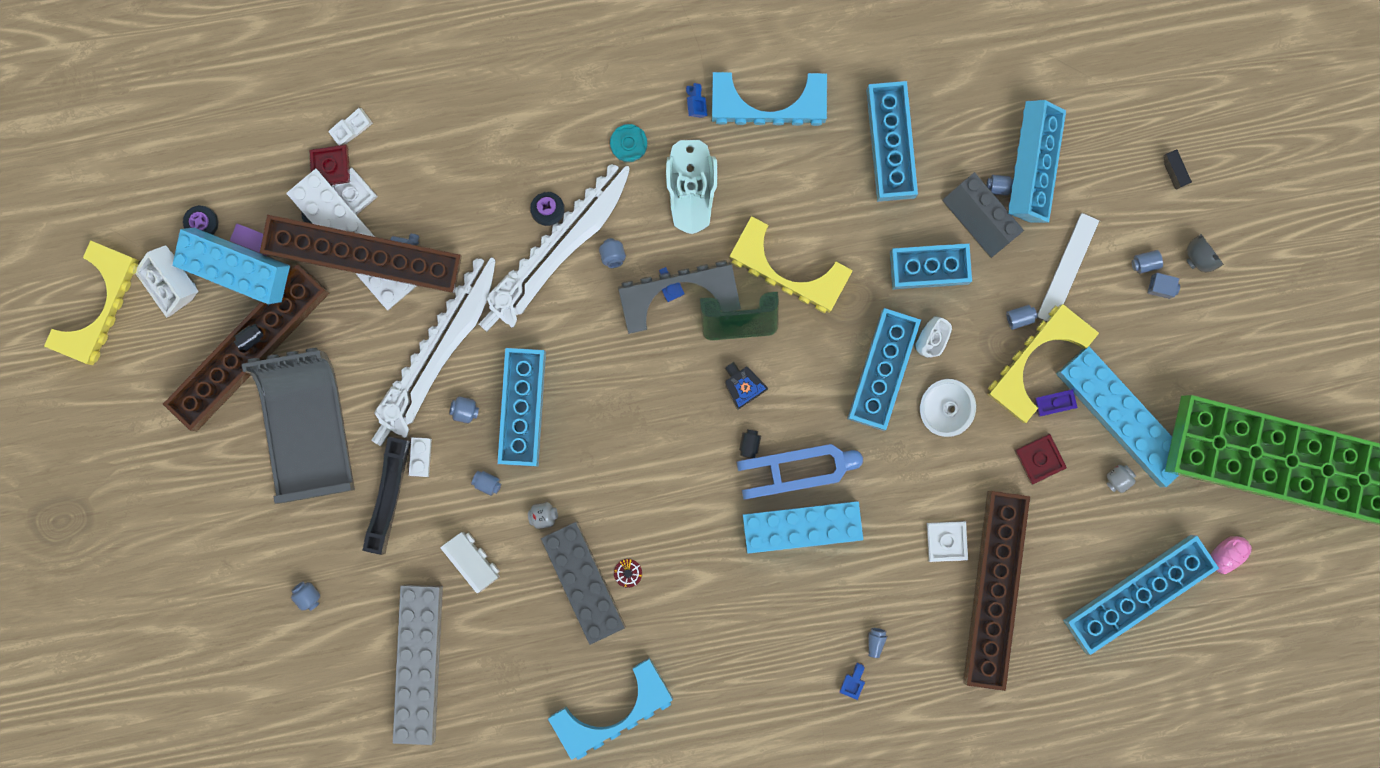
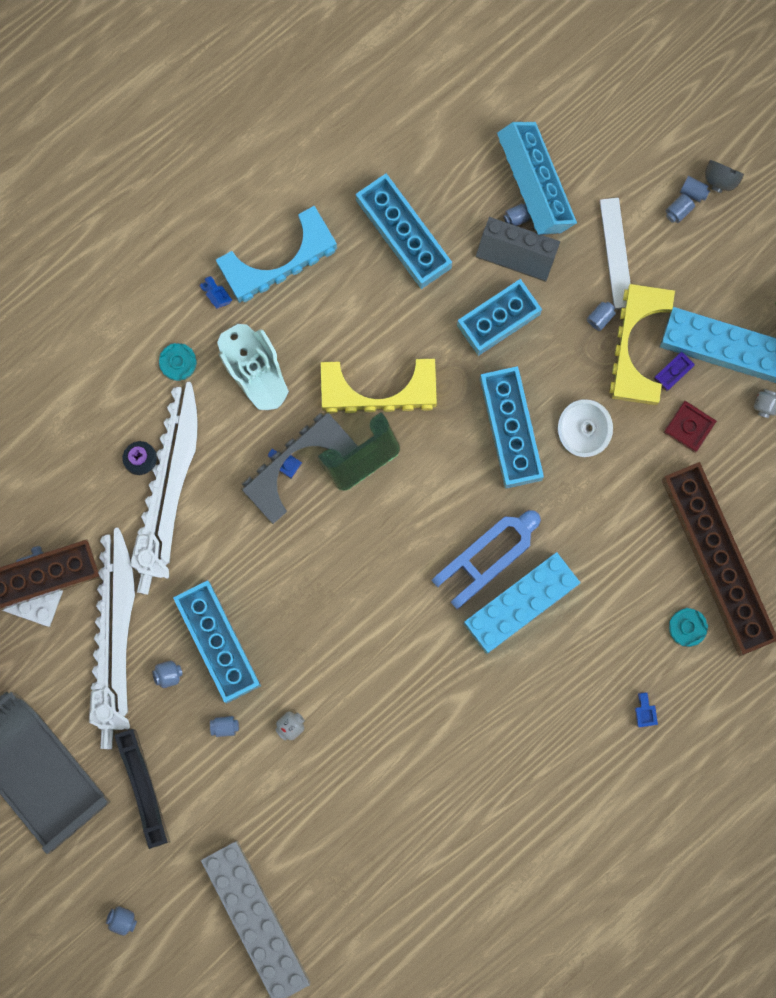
camera: 30 degrees left, 5 degrees down
(420, 457) = (152, 738): white plate -> none
(471, 561) = (251, 802): white slope -> none
(580, 737) = (437, 901): medium azure arch -> none
(583, 583) = (360, 763): dark grey brick -> none
(612, 253) = (218, 463): sand blue head -> none
(628, 573) = (394, 733): dark red piece -> none
(743, 385) = (399, 511): torso -> none
(750, 443) = (434, 558): black brick -> none
(876, 640) = (644, 665): sand blue cone -> none
(933, 337) = (537, 376): white piece -> none
(934, 631) = (688, 627): none -> teal tile
(947, 541) = (653, 543): white tile -> none
(1163, 286) = (705, 221): sand blue brick -> none
(1171, 252) = (695, 189): none -> sand blue brick
(1176, 169) = (657, 118): black piece -> none

